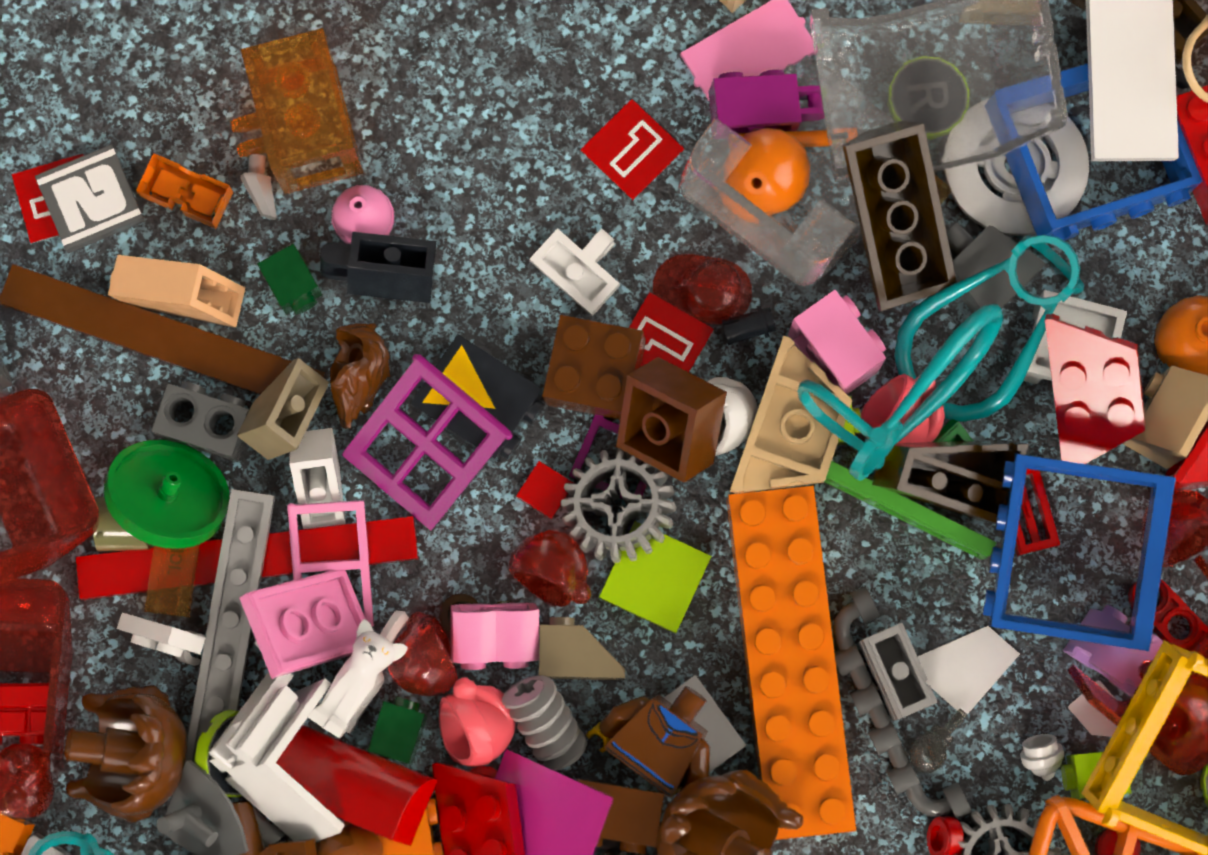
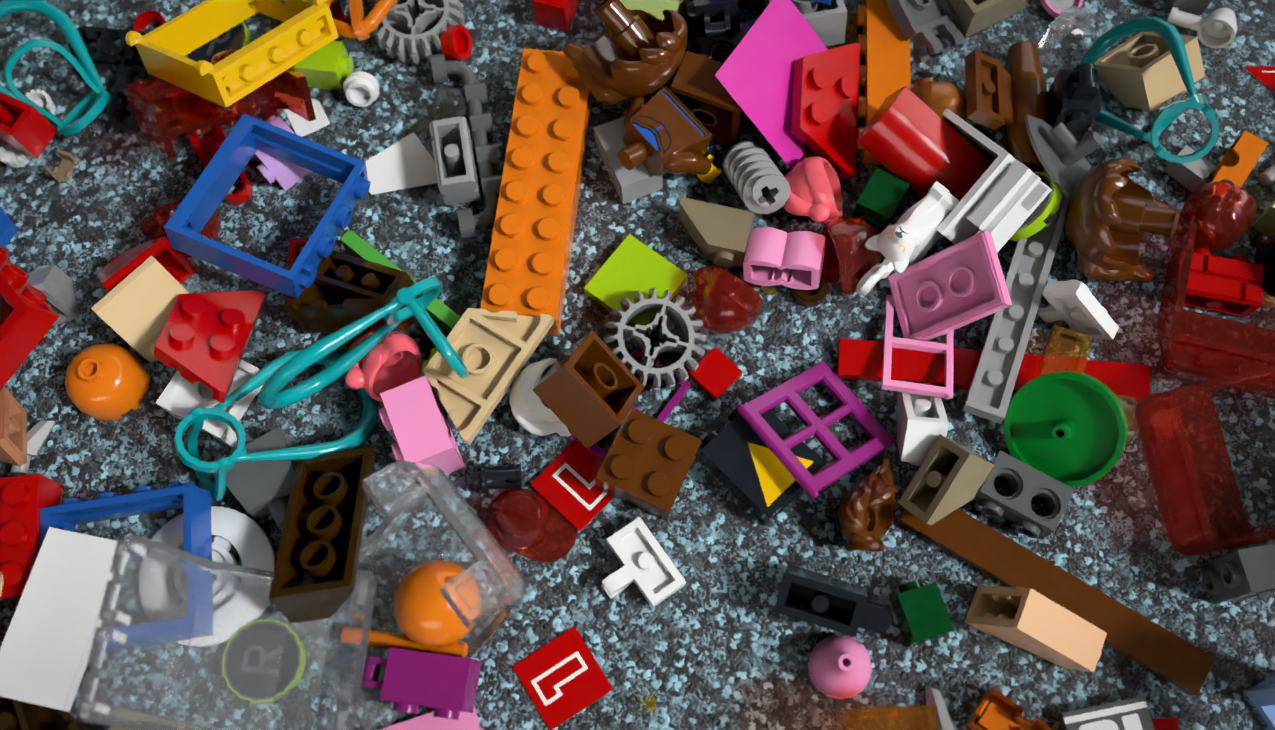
camera: 165 degrees left, 10 degrees down
(540, 143) = (650, 702): none -> clear yellow piece

